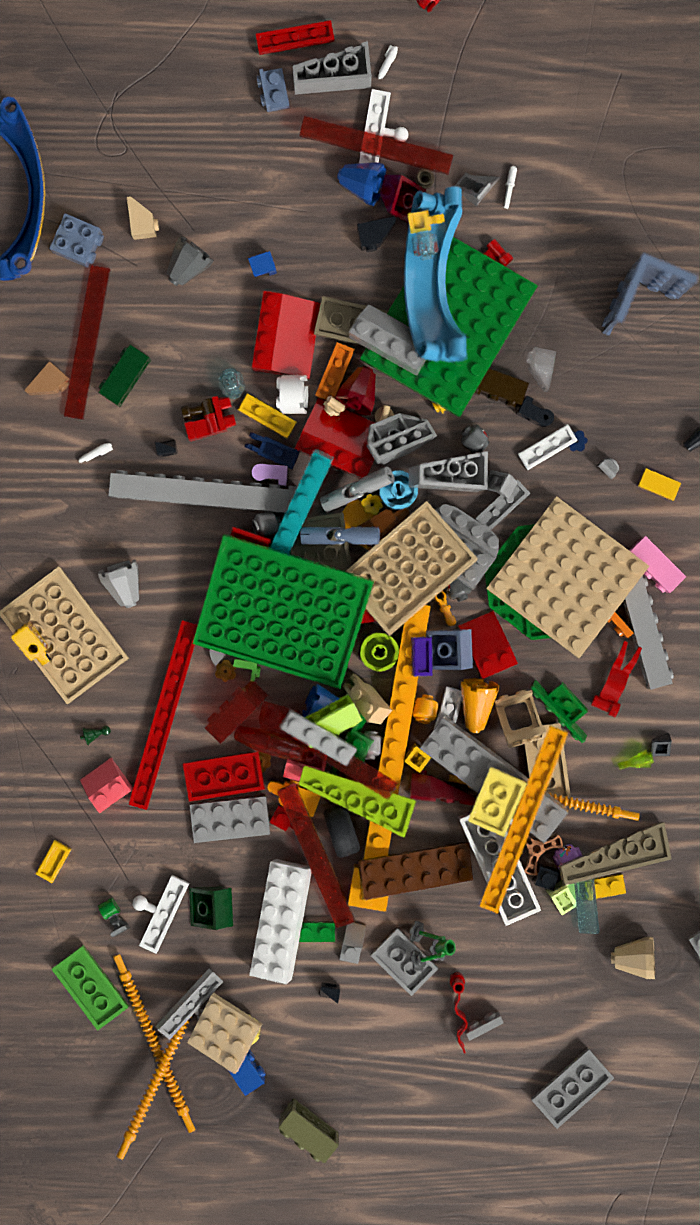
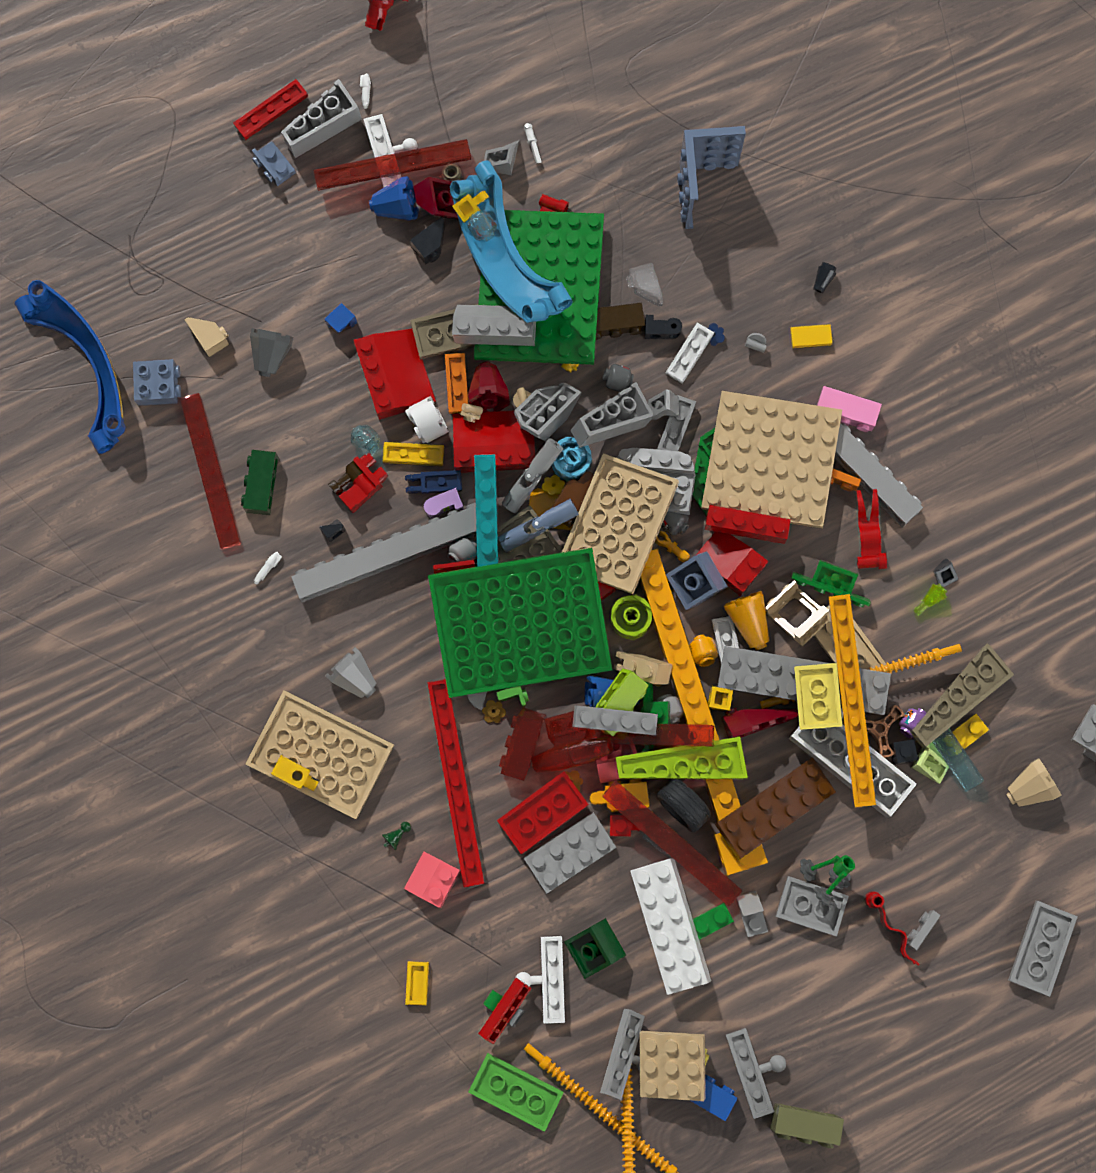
camera: 25 degrees left, 10 degrees down
(48, 381) = (190, 523): medium nougat slope -> none
(111, 922) = (504, 1010): none -> red piece
(286, 1066) = (751, 1073): none -> light grey plate
(330, 991) = (755, 974): black slope -> none
(421, 656) = (674, 598): dark purple tile -> none
(517, 623) = (747, 524): none -> red brick

